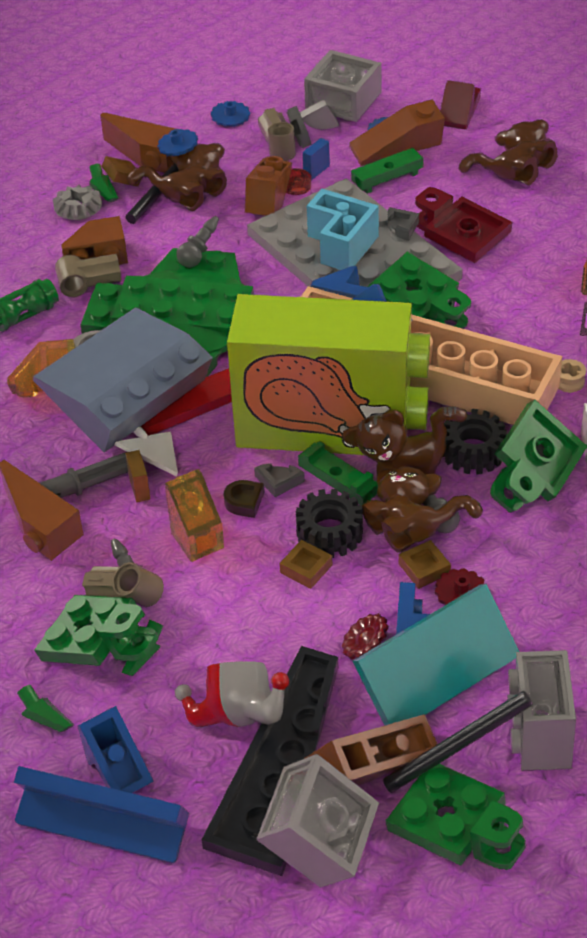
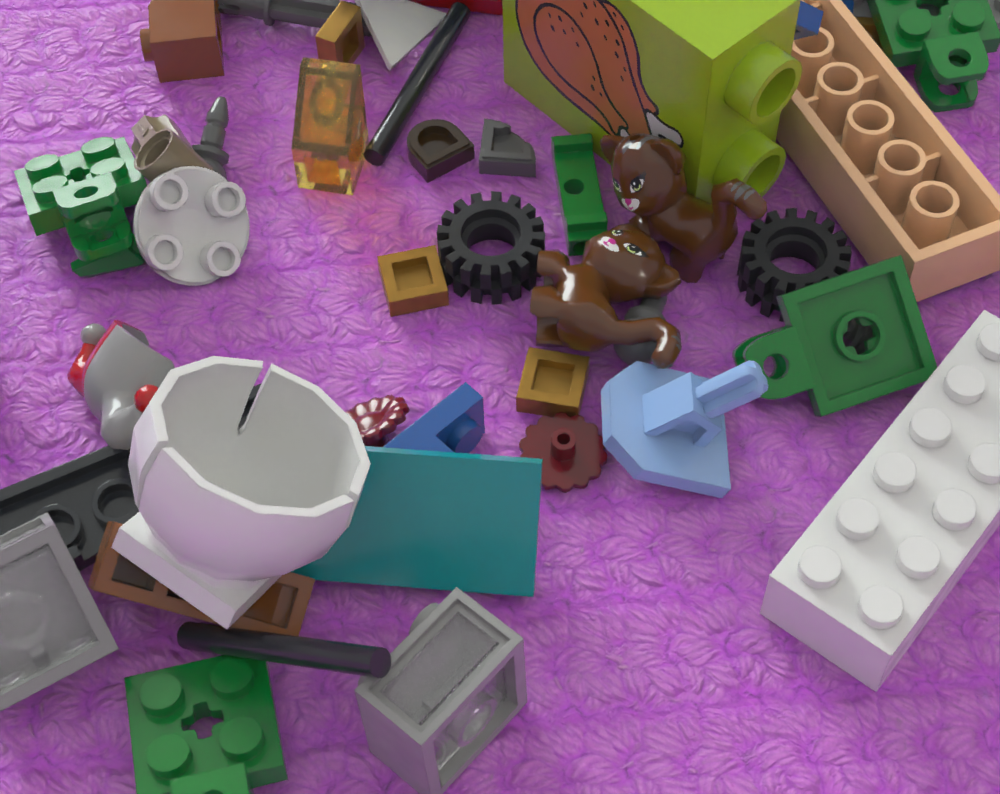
camera: 40 degrees right, 10 degrees up
(176, 607) = (192, 225): none -> white dish
(189, 455) = (416, 84): none -> black bar
(385, 676) = (232, 504): none -> white plate
(502, 538) = (672, 423): none -> light blue piece

